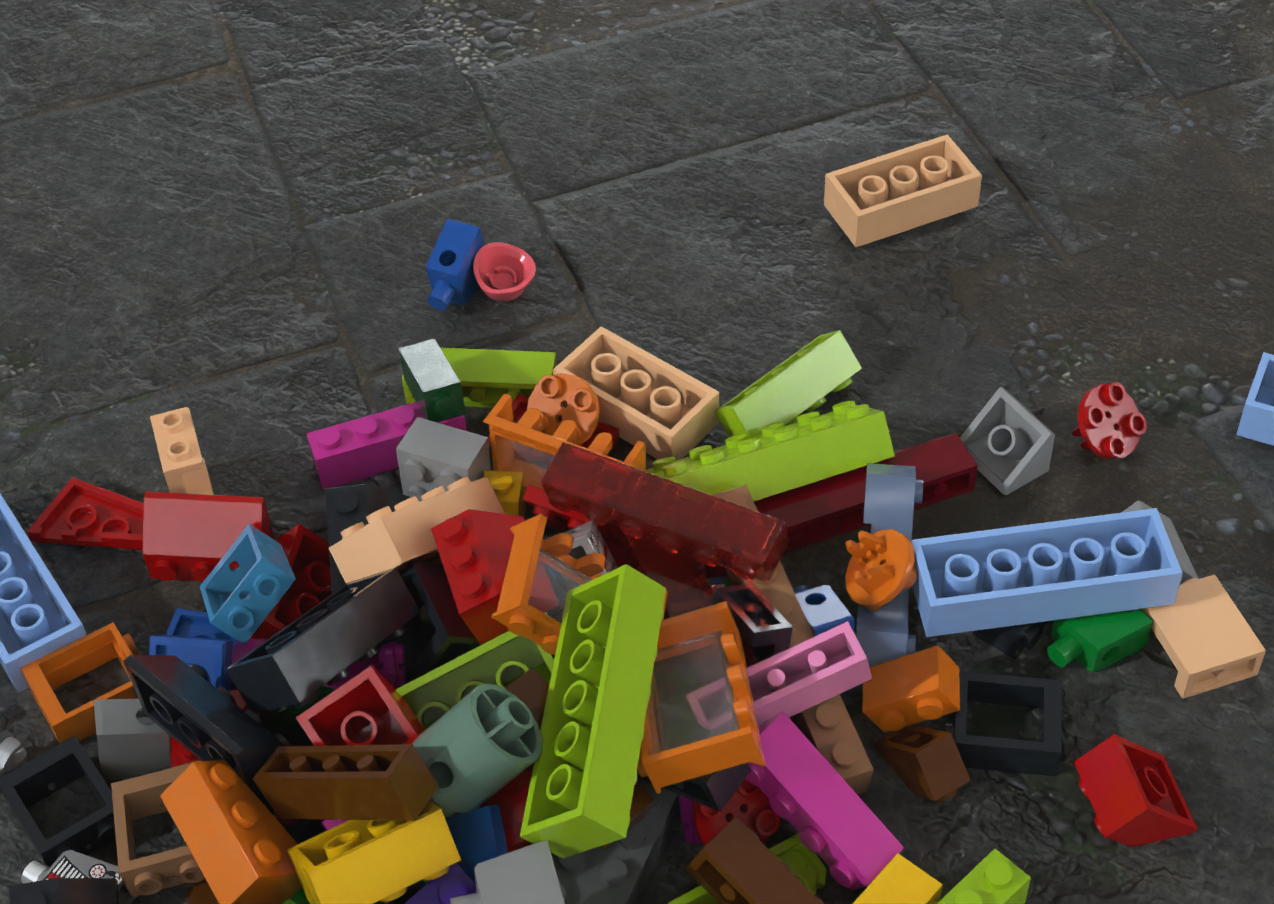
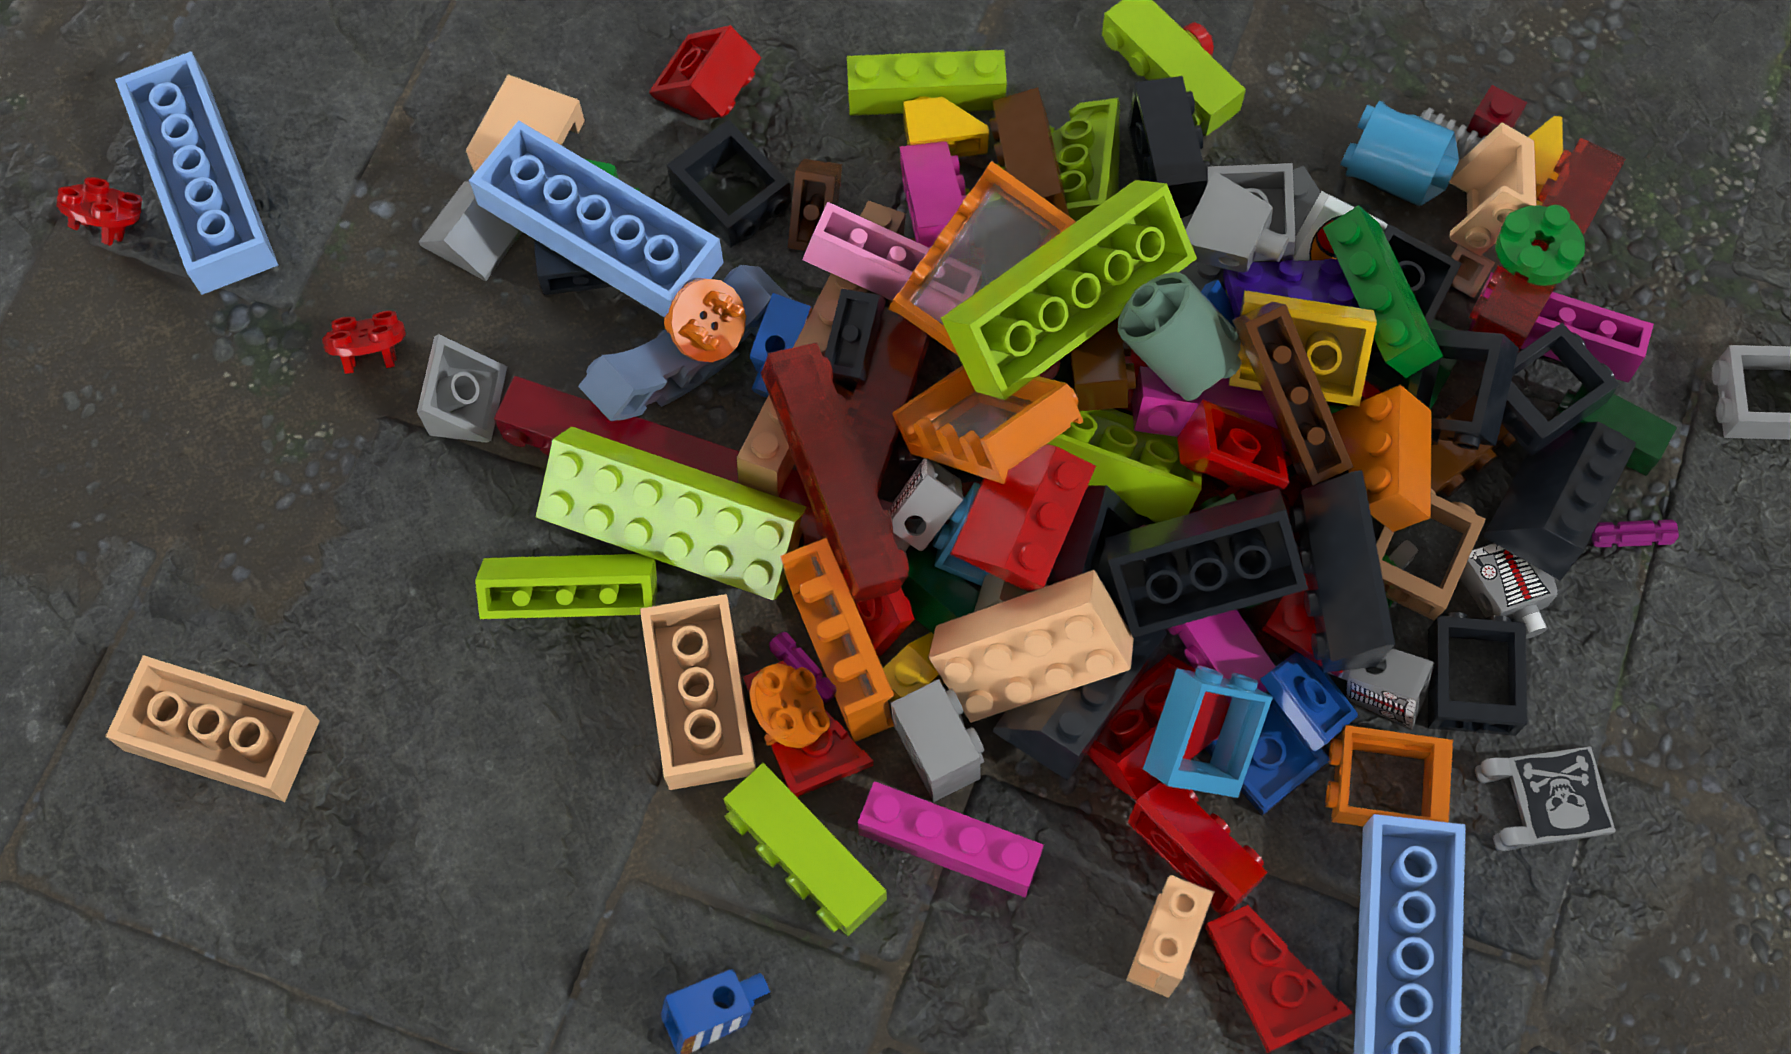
camera: 140 degrees left, 20 degrees up
(432, 381) = (879, 822): brick -> none
(503, 271) = (669, 957): coral helmet -> none
(912, 689) = (773, 239): orange brick -> none

